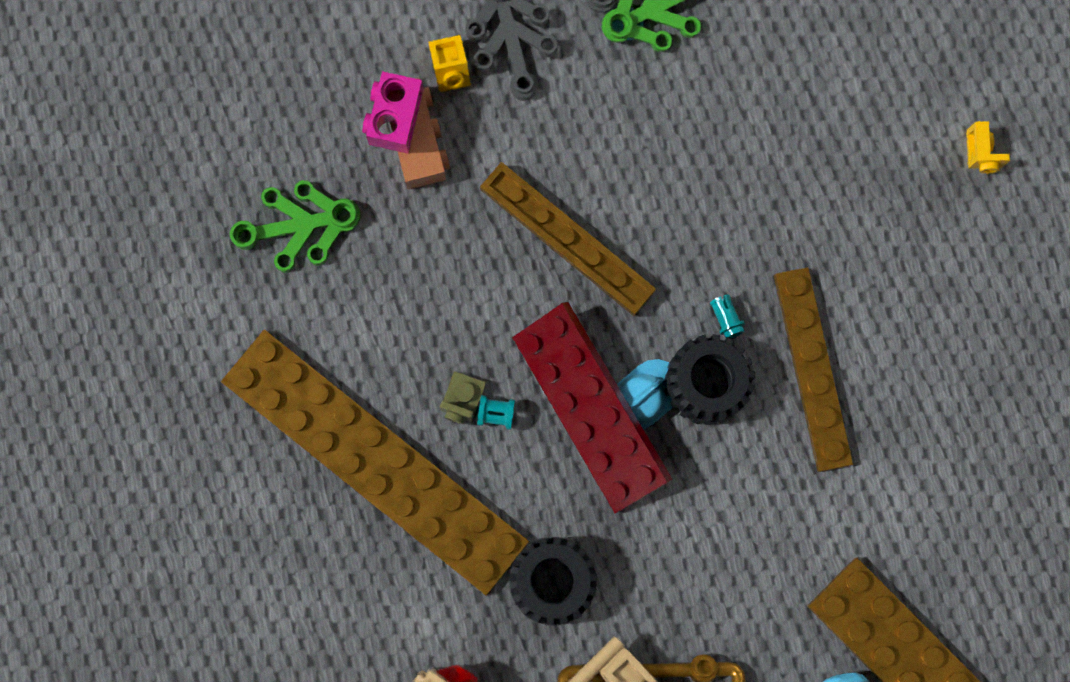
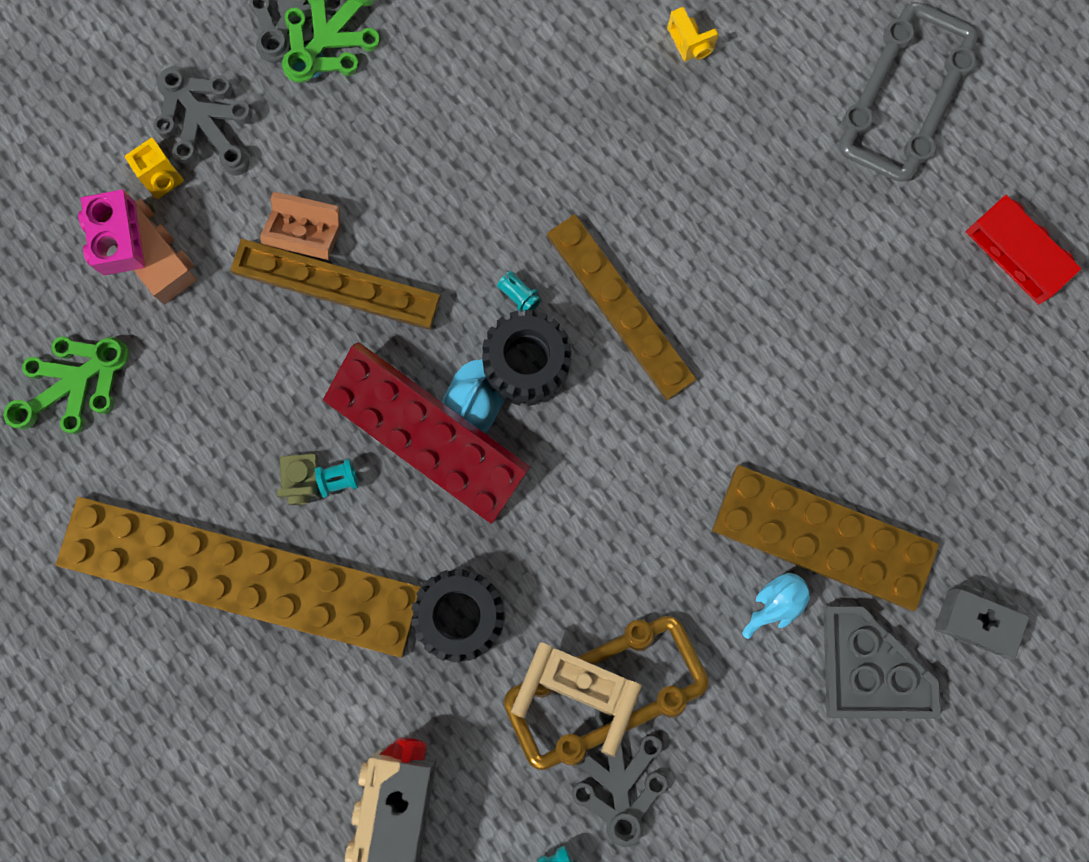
camera: 20 degrees left, 0 degrees up
(559, 173) = (302, 226): none -> nougat bracket

